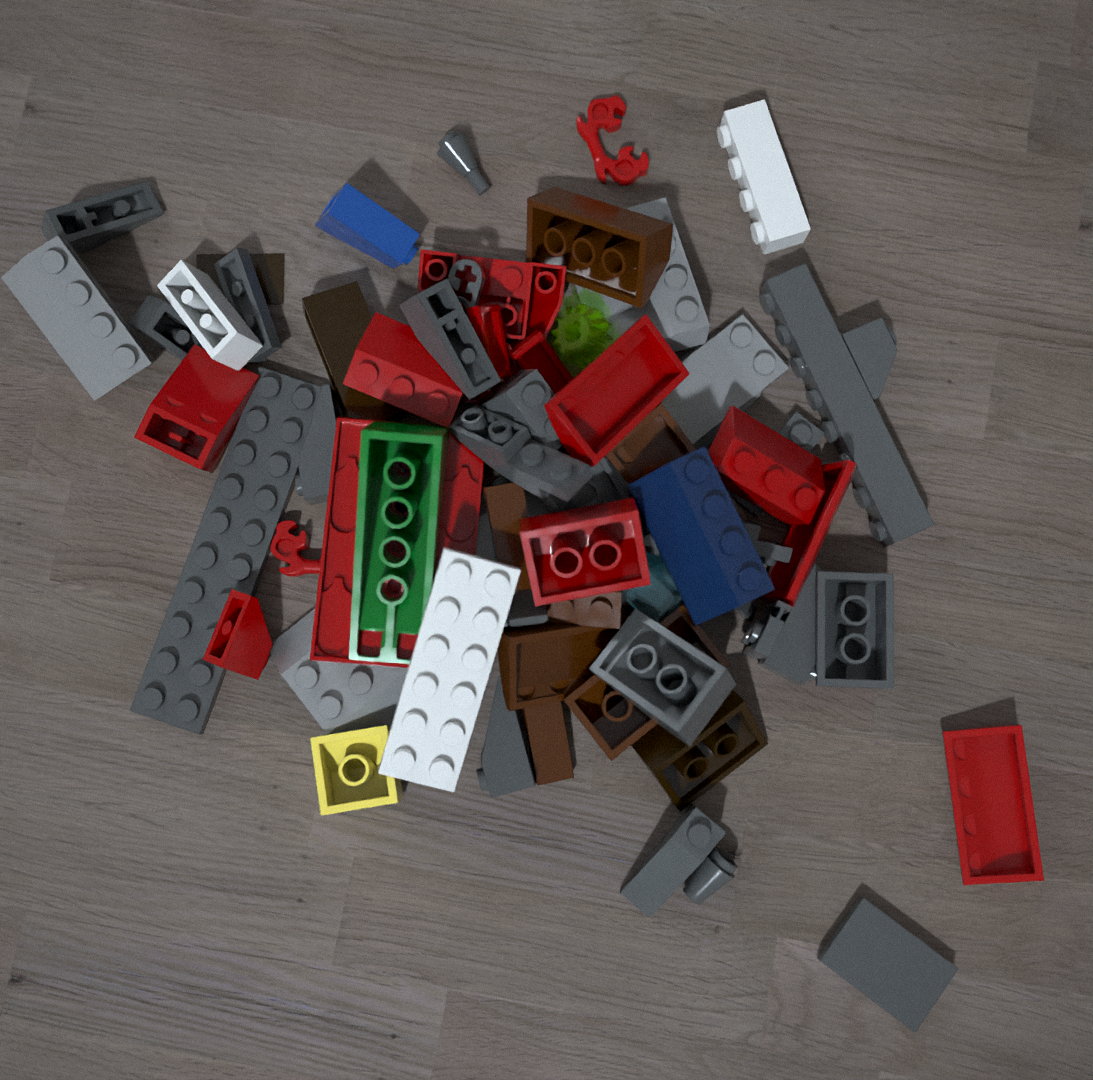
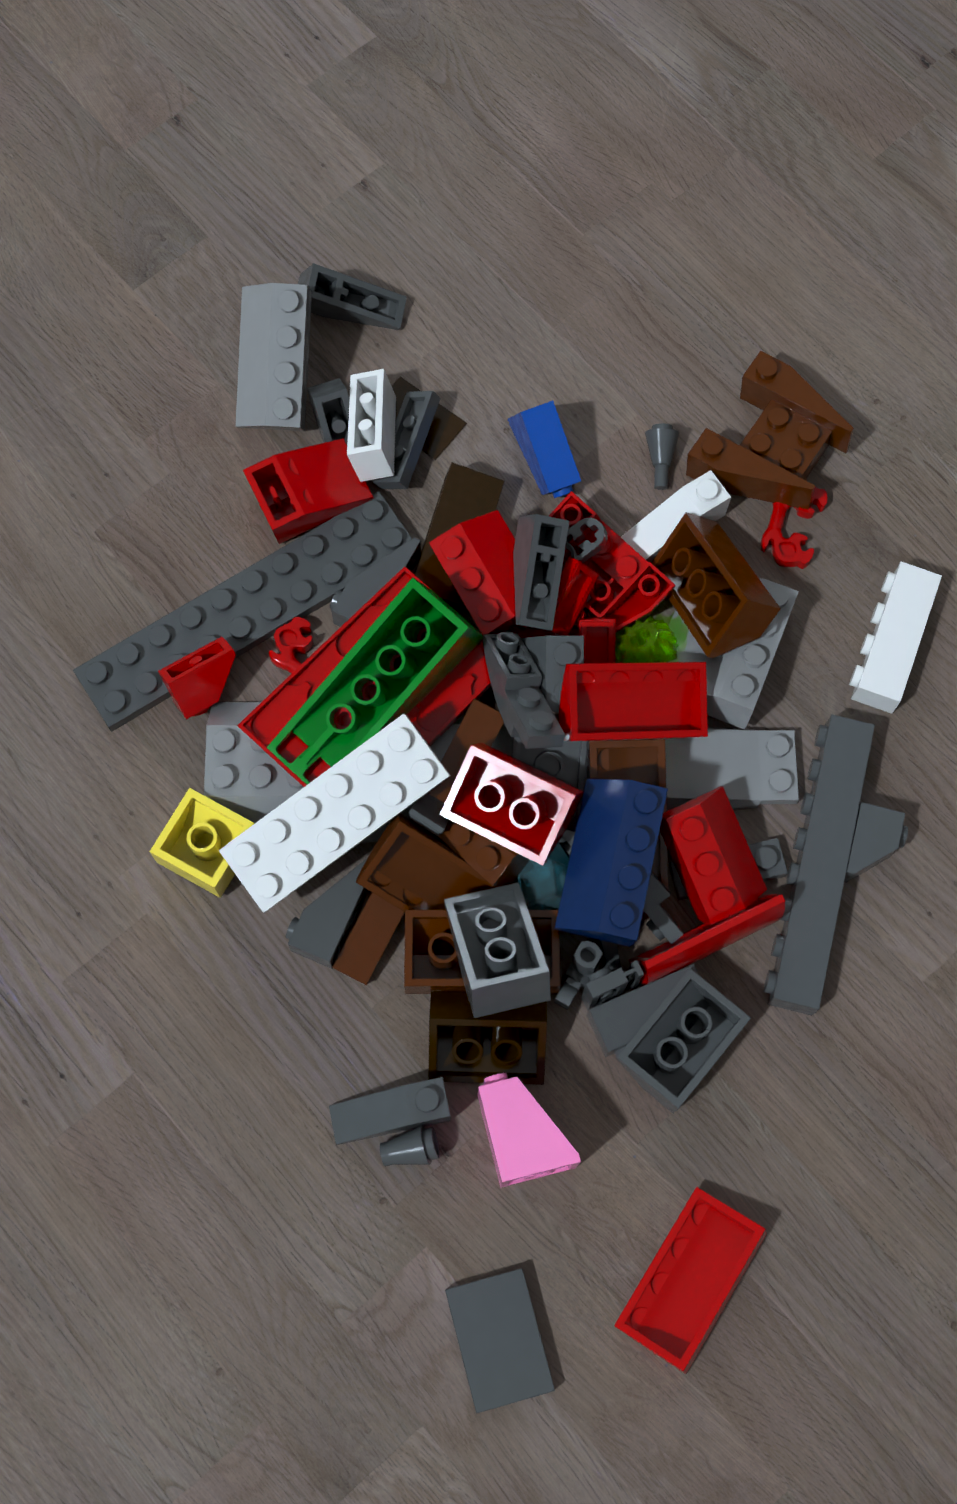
camera: 35 degrees right, 10 degrees down
(527, 176) = (700, 497): none -> white slope
(553, 81) = (781, 444): none -> reddish brown wedge
(729, 635) = (582, 966): none -> dark grey bar
(791, 804) = (521, 1133): none -> bright pink slope

